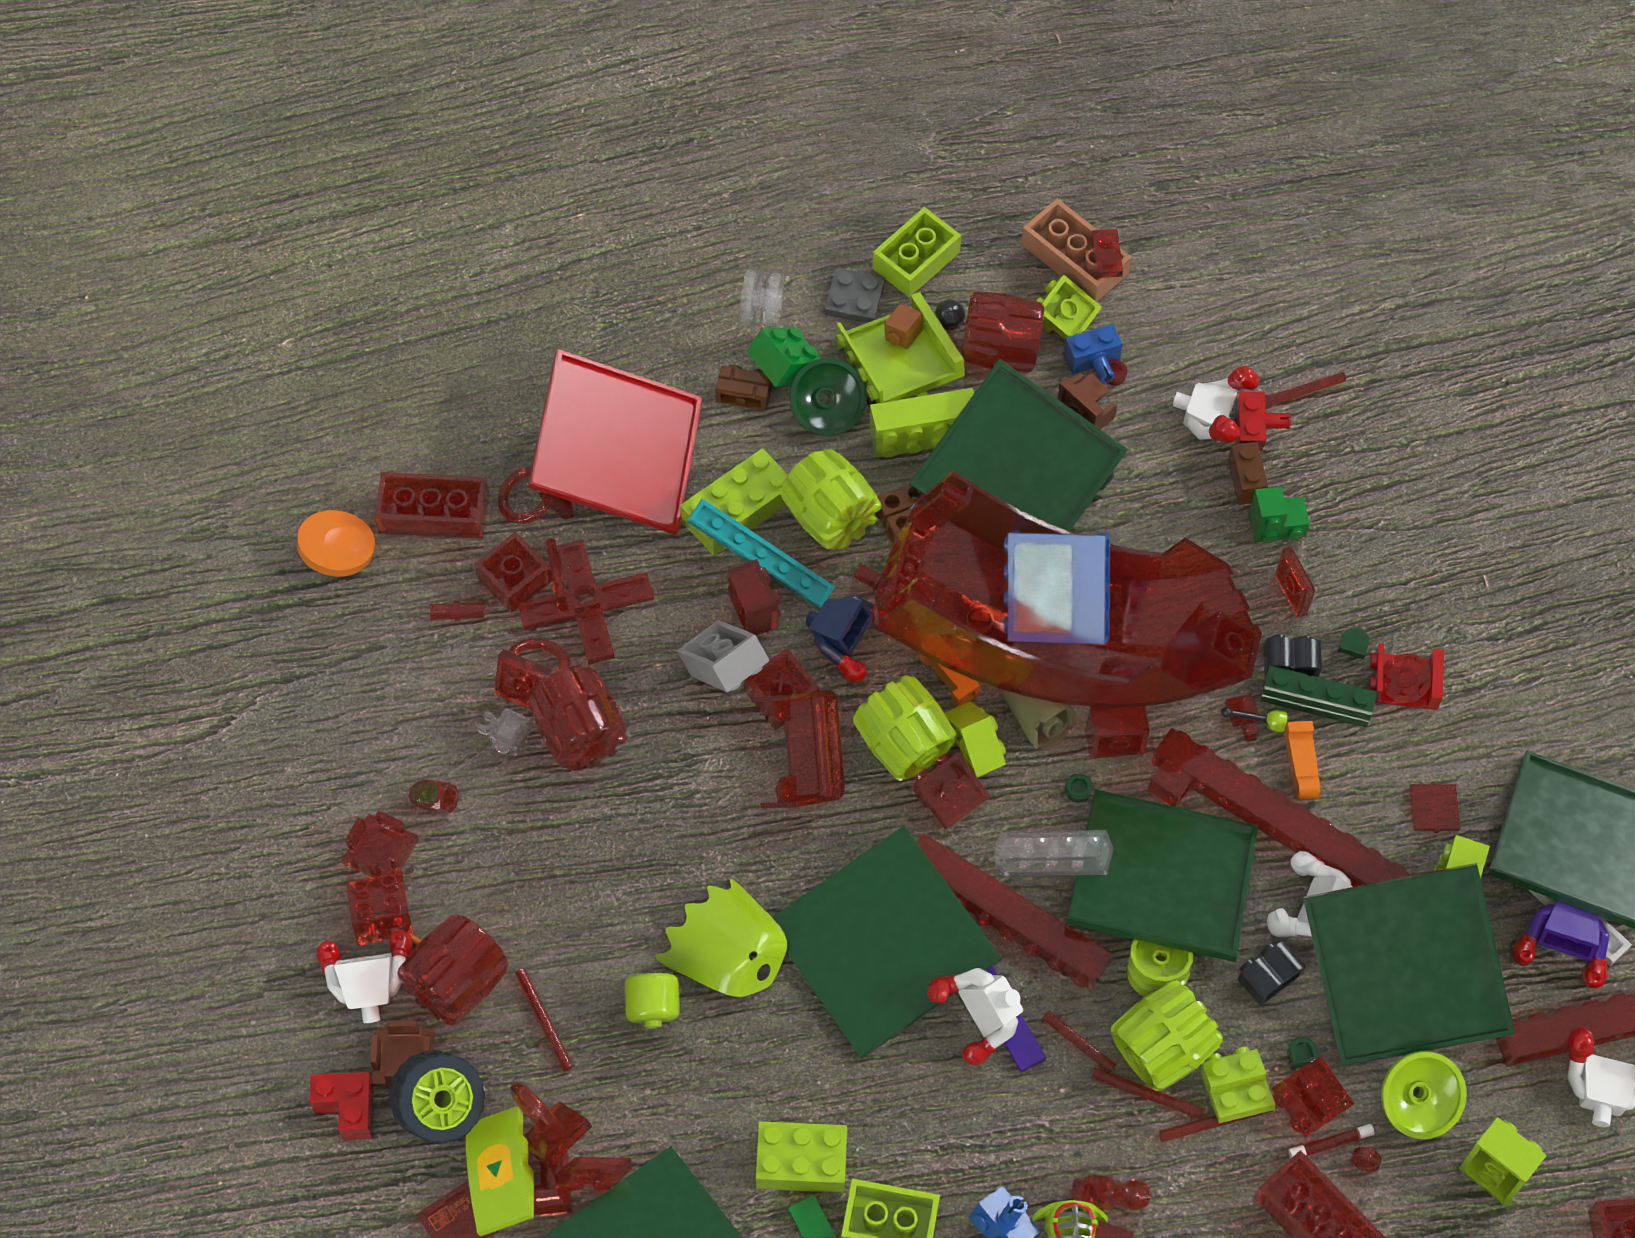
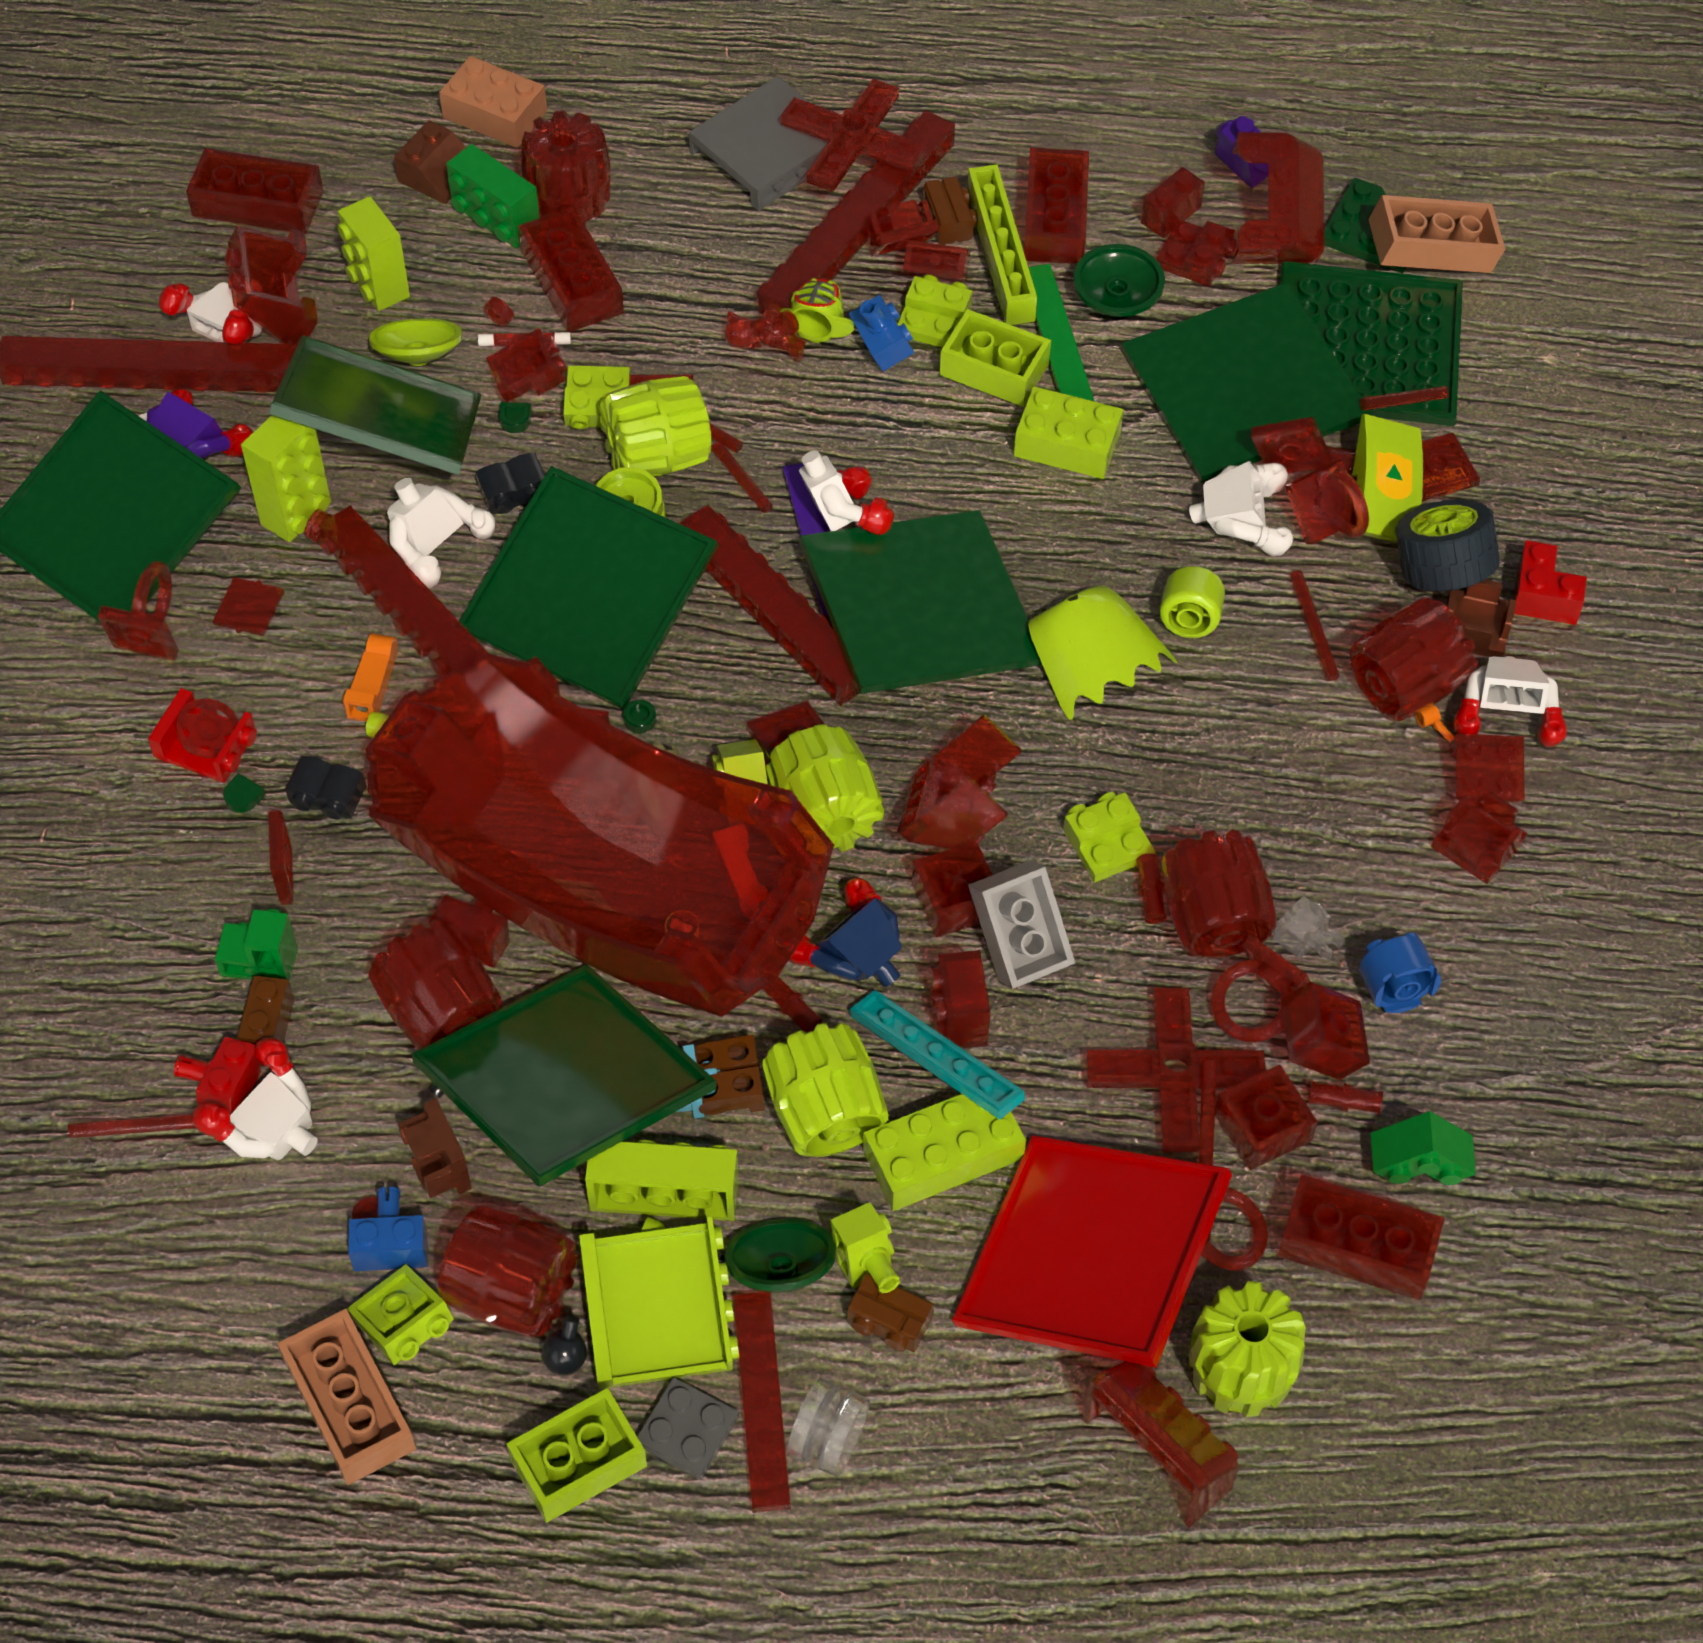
camera: 165 degrees left, 5 degrees down
(335, 543) = (1499, 1221): orange piece -> none
(394, 570) = (1423, 1146): none -> green brick
(429, 702) = (1399, 973): none -> blue brick
(434, 796) = (1409, 872): clear red rock -> none
(478, 637) = (1325, 1031): none -> clear red brick
(498, 399) = (1247, 1349): none -> lime wheel
(540, 326) = (1167, 1431): none -> clear red windscreen
(632, 1108) = (1236, 505): none -> white torso
(634, 739) = (1151, 889): none -> clear red pin
(676, 774) = (1107, 835): none -> lime plate
(772, 410) = (865, 1247): none -> lime brick
(781, 353) = (822, 1324): green brick -> none
(808, 310) = (762, 1402): none -> clear red tile
(903, 326) = (640, 1334): dark orange brick -> none
(1053, 853) = (703, 622): clear brick -> none
(1057, 587) = (587, 868): panel -> none
(1107, 253) = (310, 1350): clear red plate -> none
(1134, 503) = (433, 983): none -> clear red wheel
(1318, 696) = (311, 730): dark green brick -> none
(1499, 738) = (139, 630): none -> clear red tile
(1577, 1095) = (265, 282): none -> clear red windscreen

